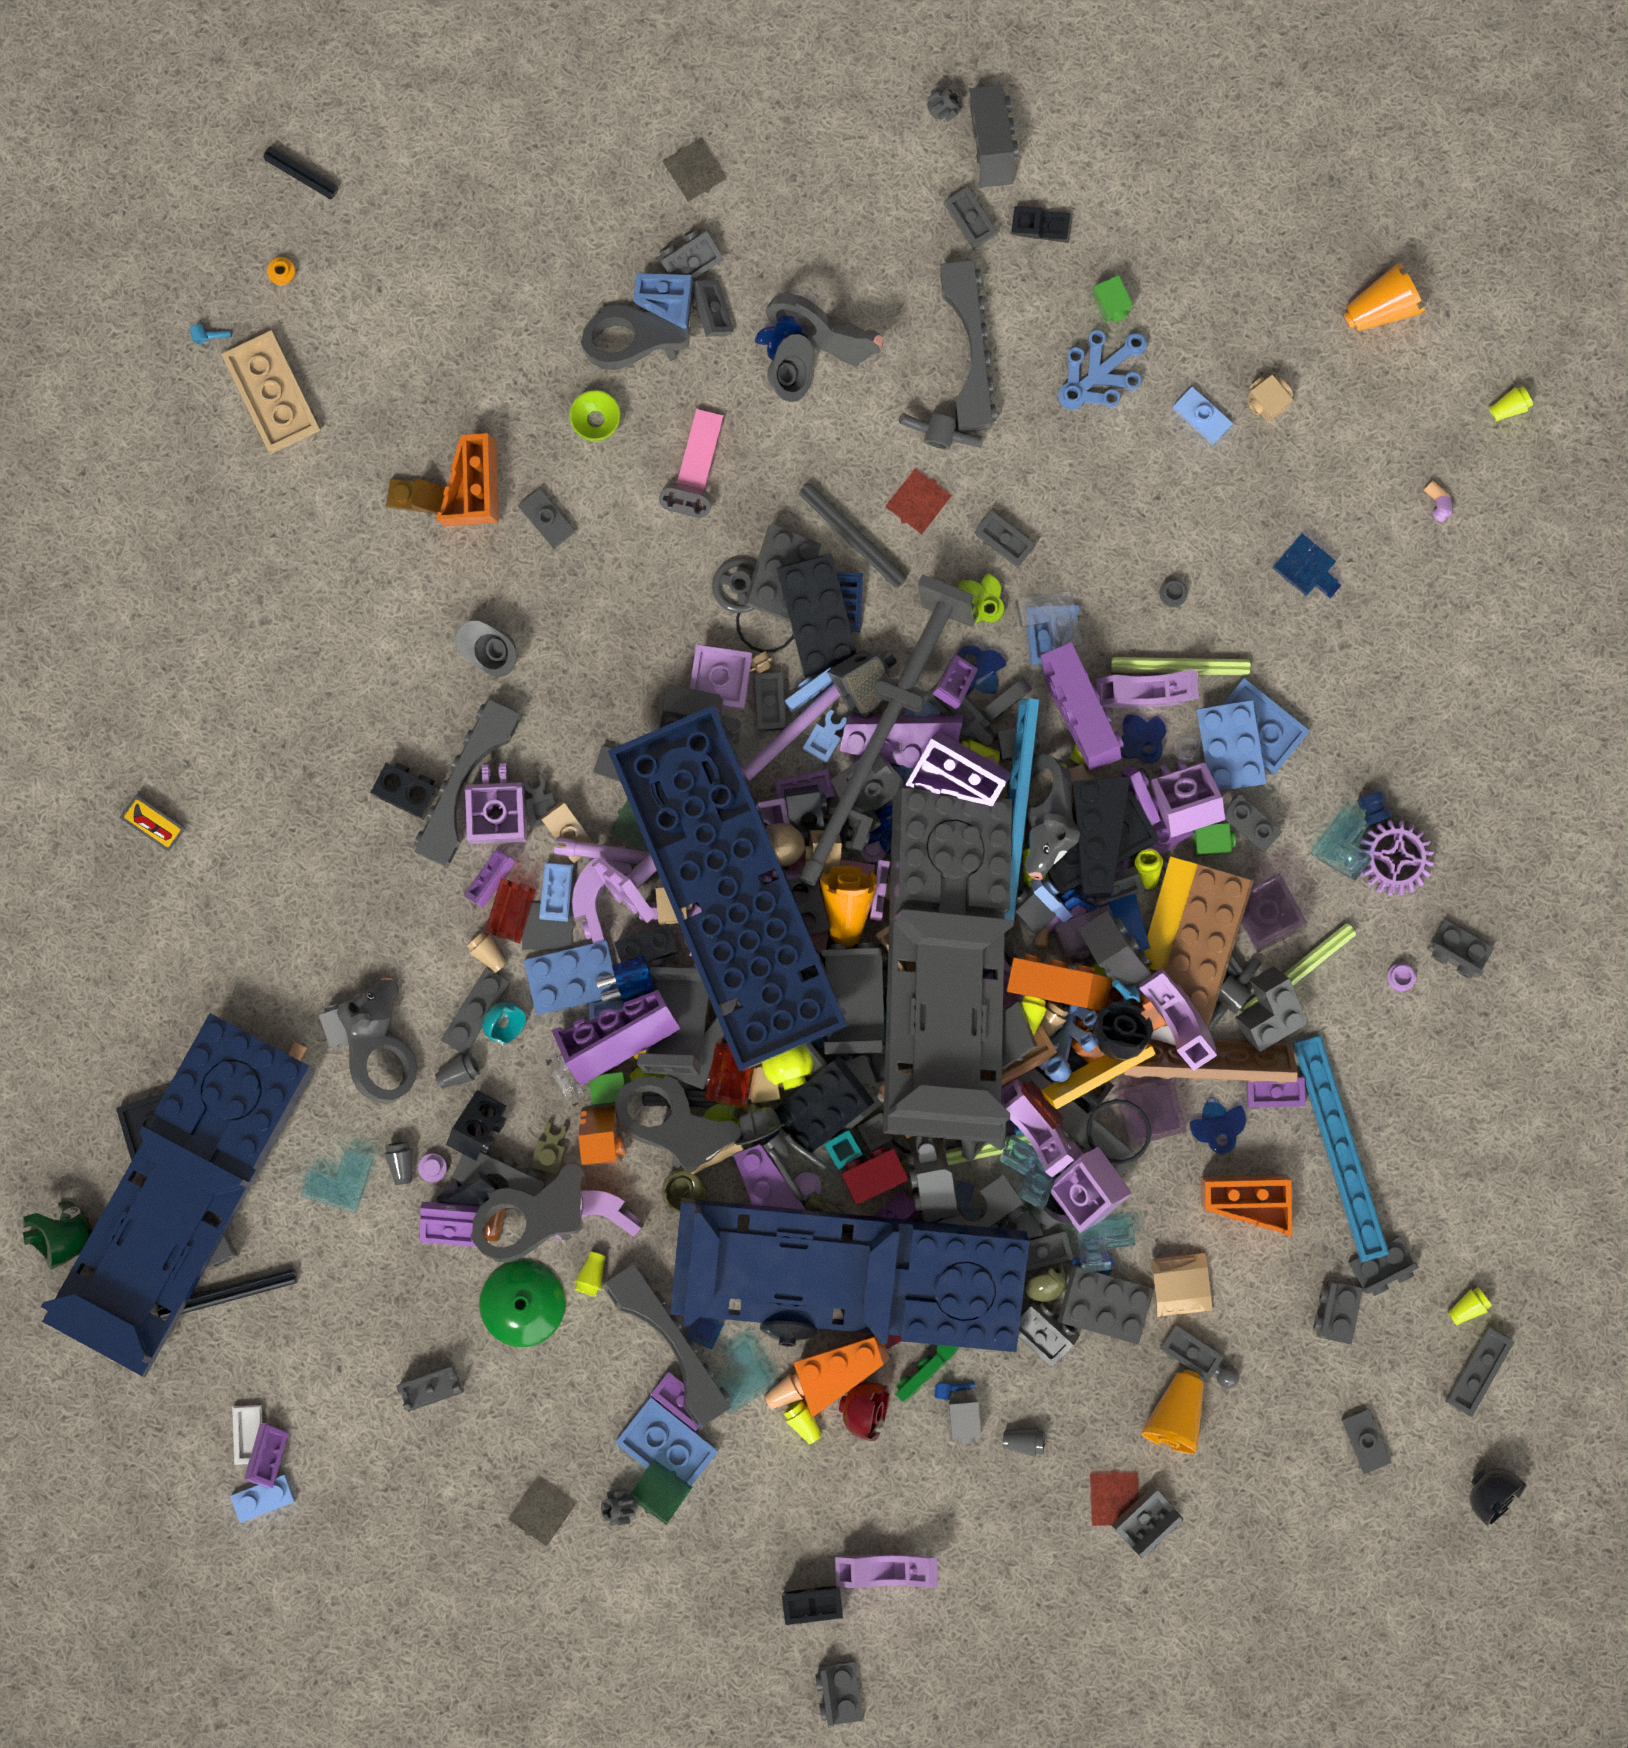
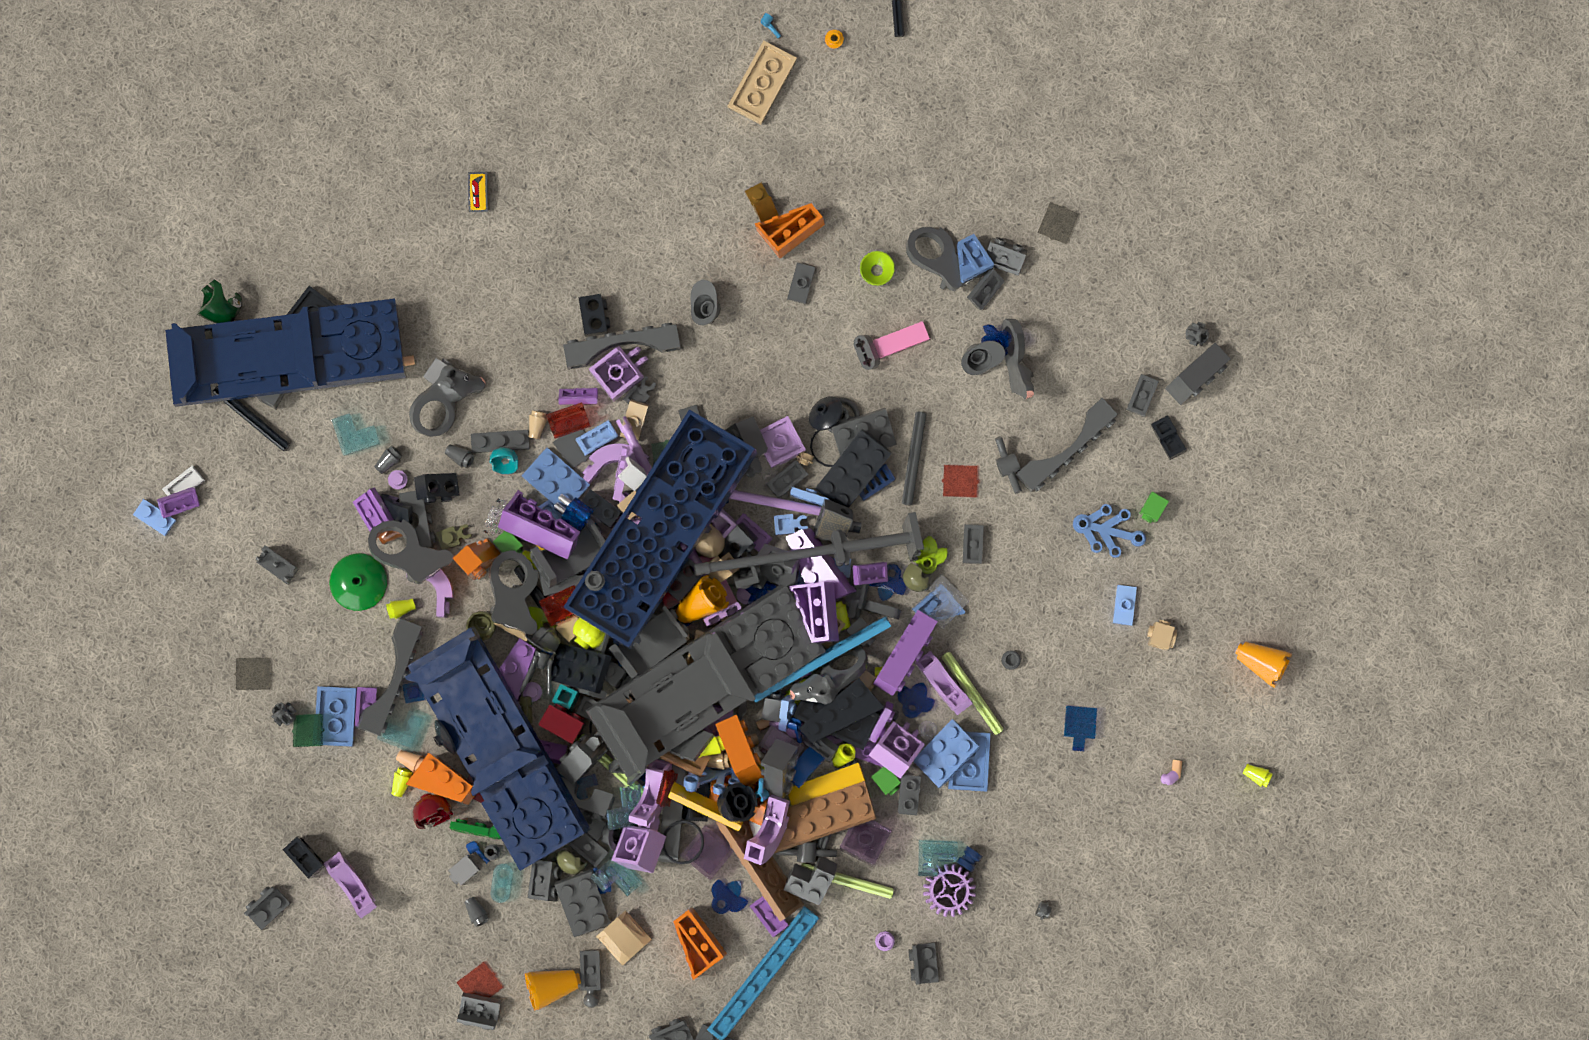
camera: 55 degrees right, 0 degrees up
(638, 875) = (633, 474): none -> white panel
(724, 599) = (825, 413): none -> black dish
(736, 1009) = (595, 580): none -> dark grey plate
(960, 1366) = (496, 850): none -> dark grey pin
(998, 636) = (914, 580): none -> olive hair
(1012, 1385) = (503, 883): none -> clear light blue plate
(1497, 763) = (1044, 910): none -> dark grey plate

